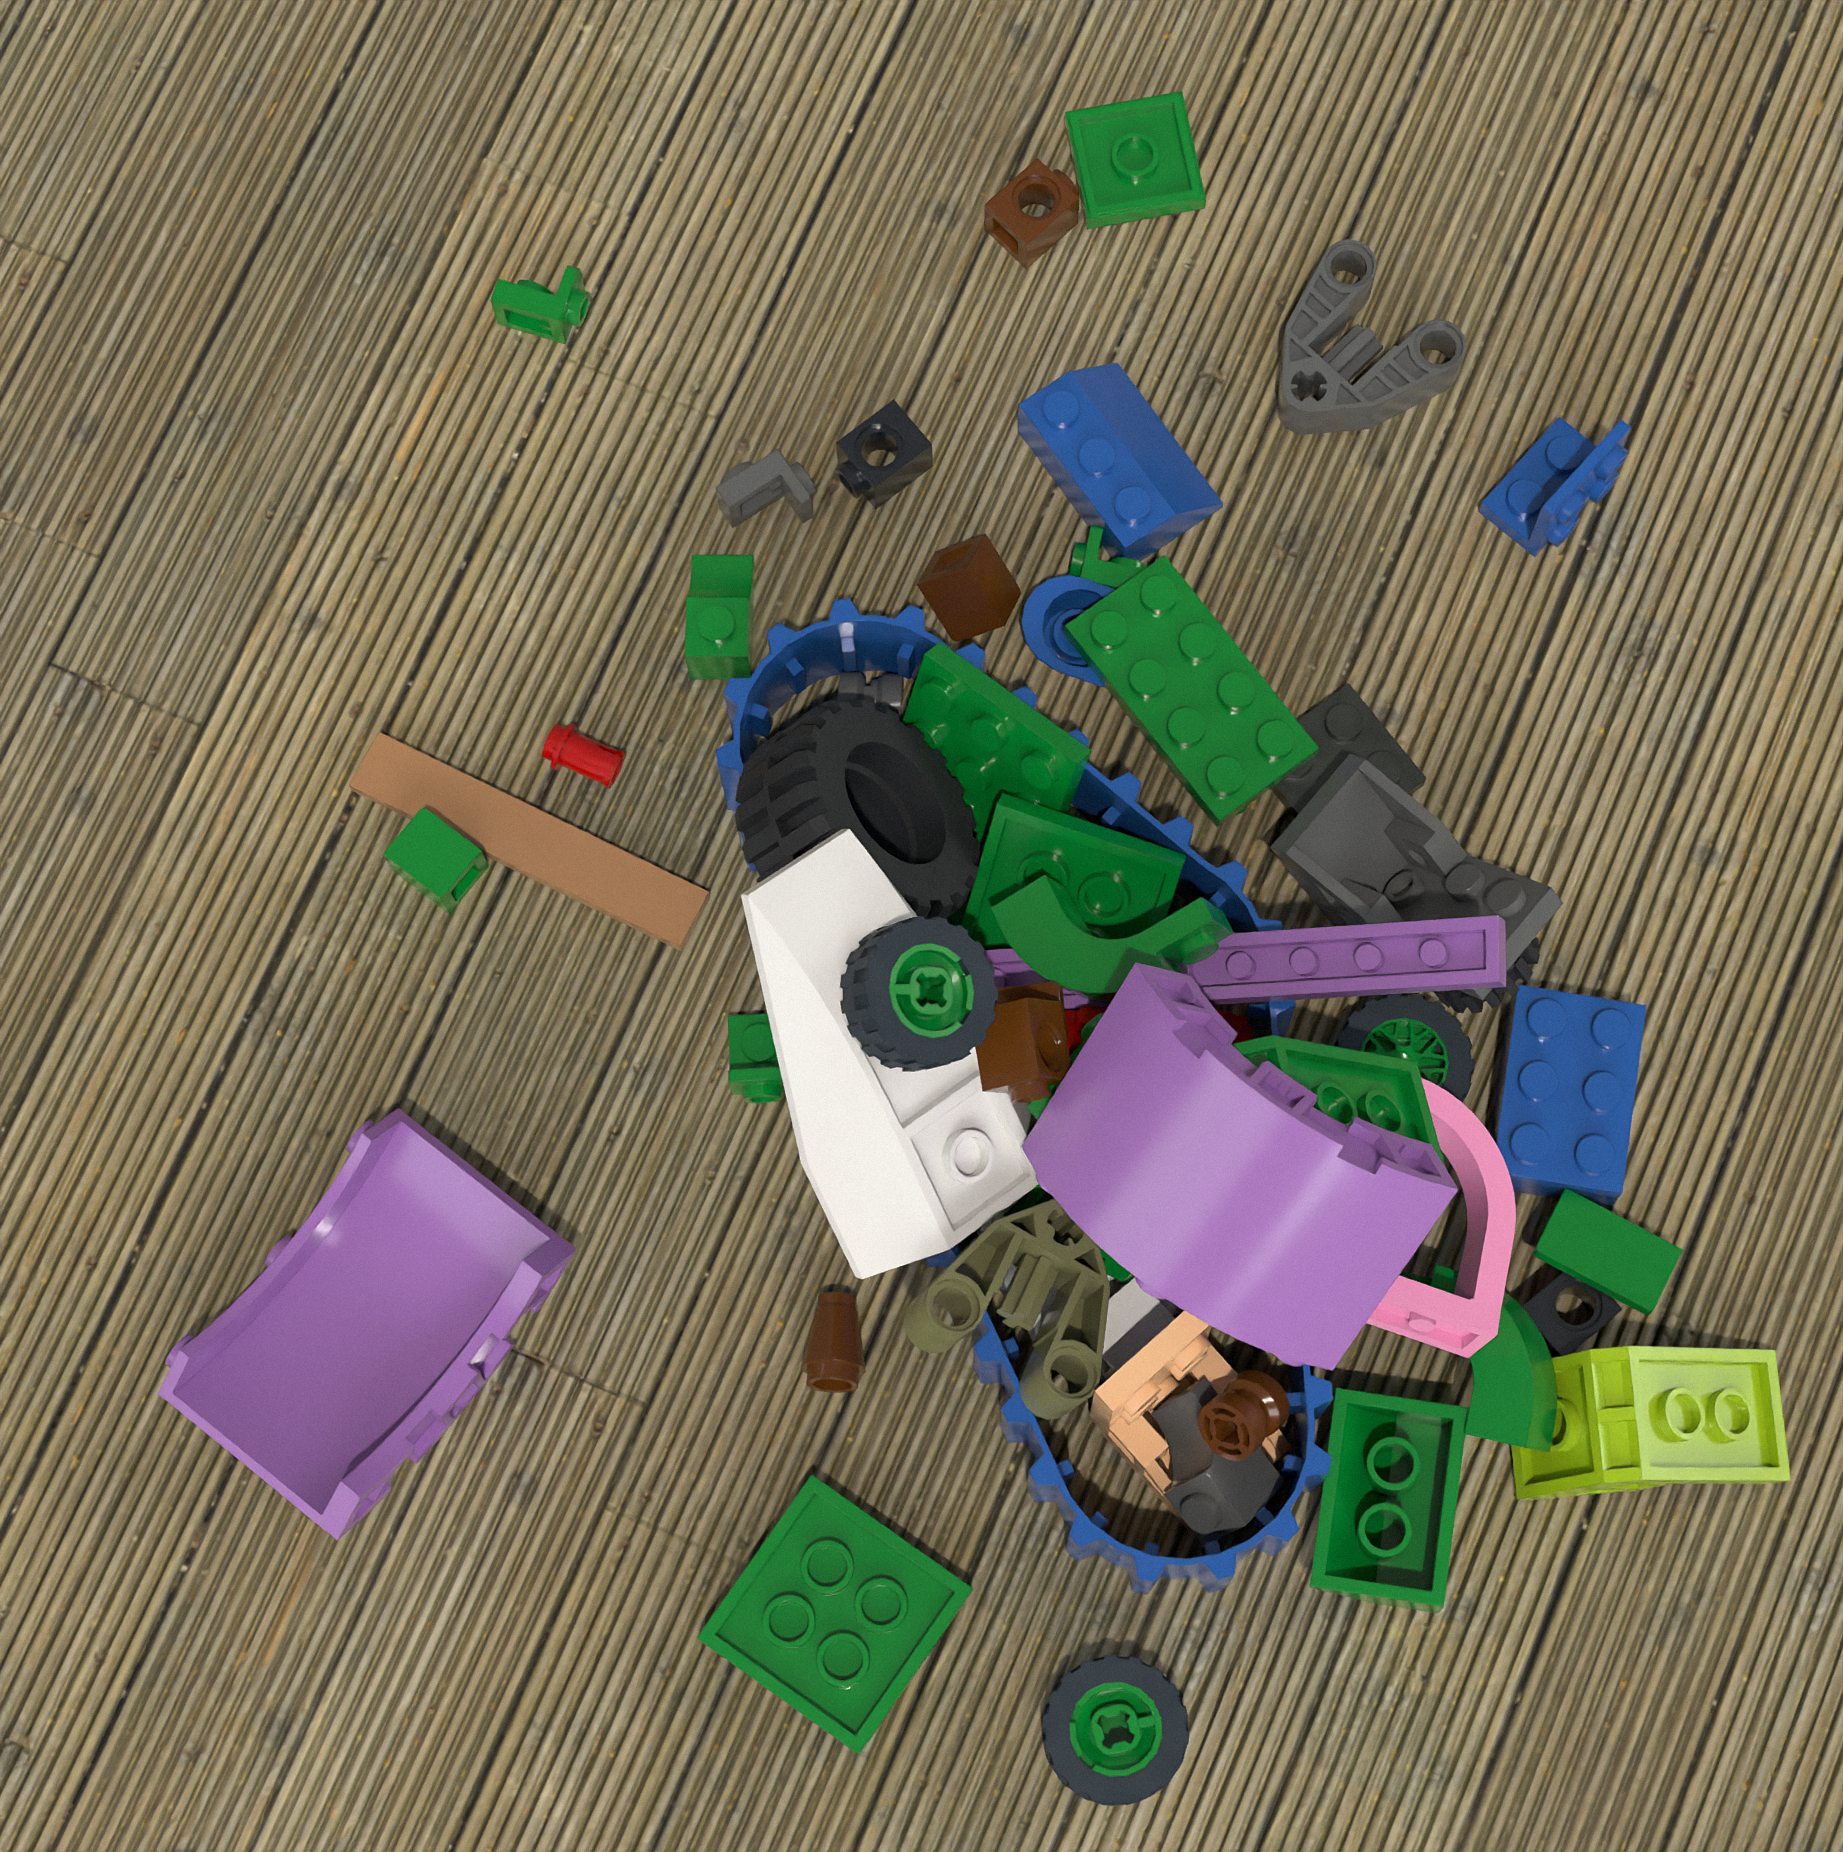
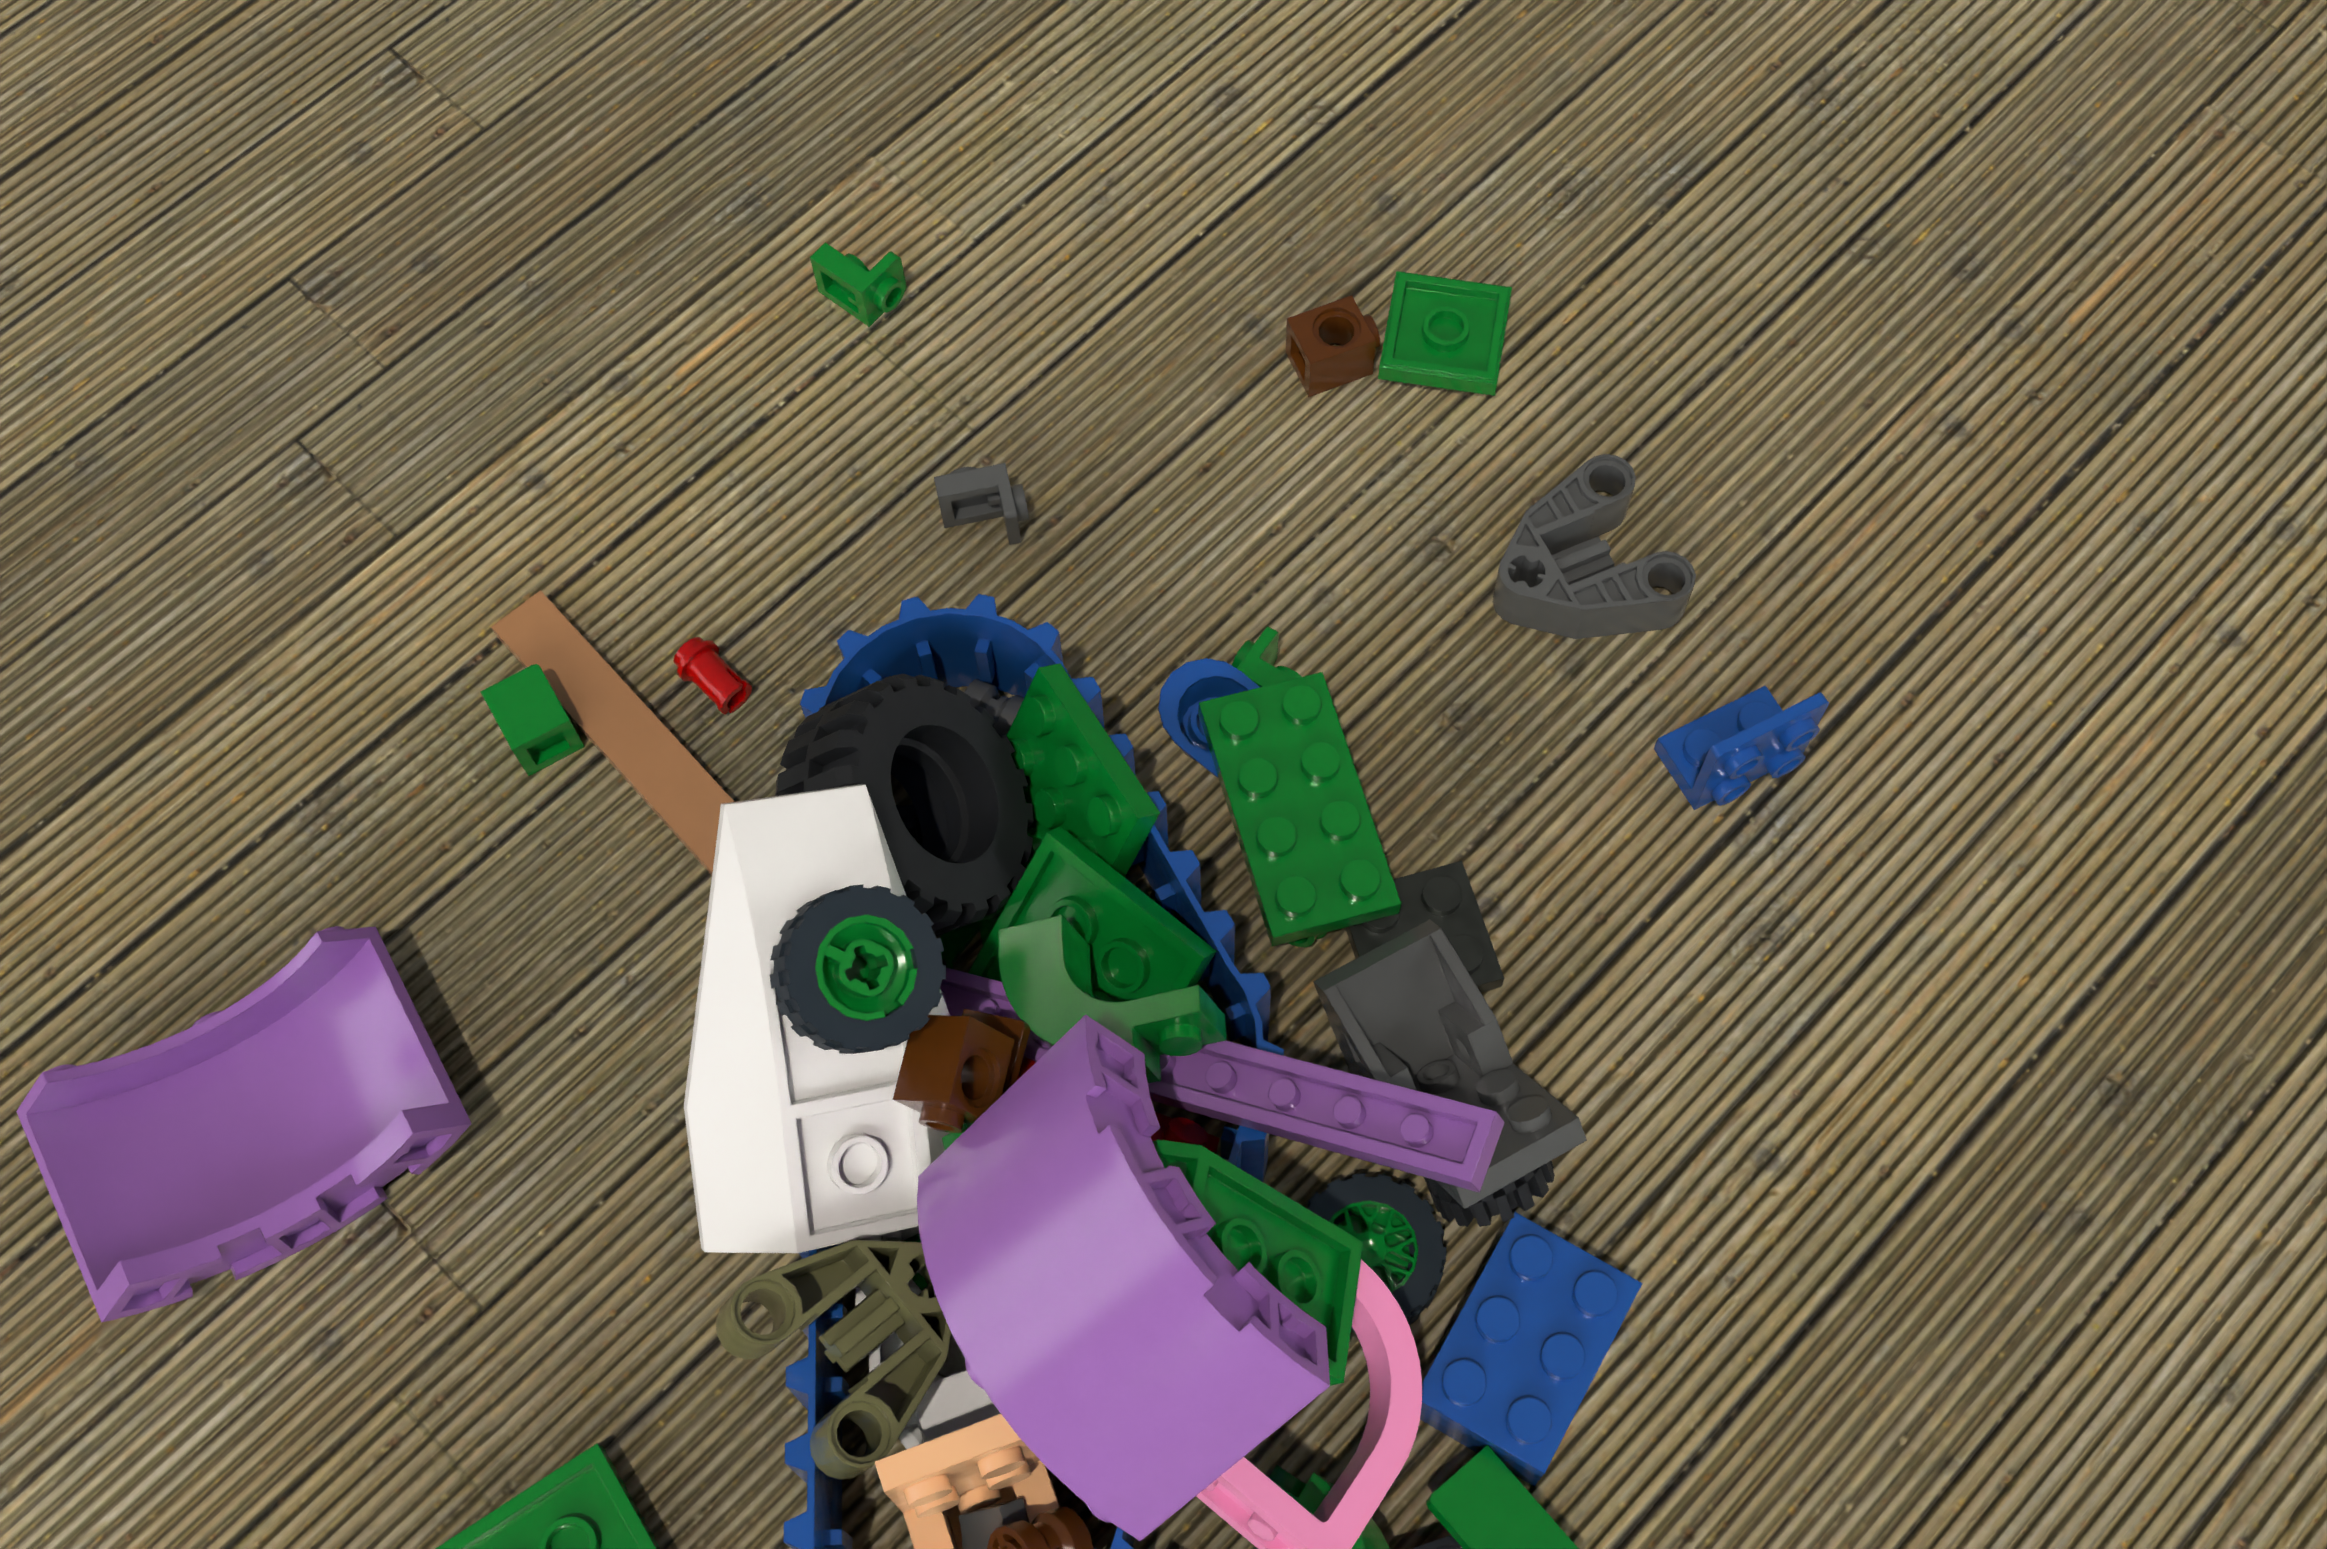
camera: 20 degrees right, 10 degrees down
(720, 617) = (897, 574): green arch -> none
(834, 1345) = (683, 1319): reddish brown cone -> none
(889, 431) = (1109, 484): black brick -> none
(969, 588) = (1132, 648): reddish brown panel -> none
(1115, 460) = (1320, 581): blue slope -> none

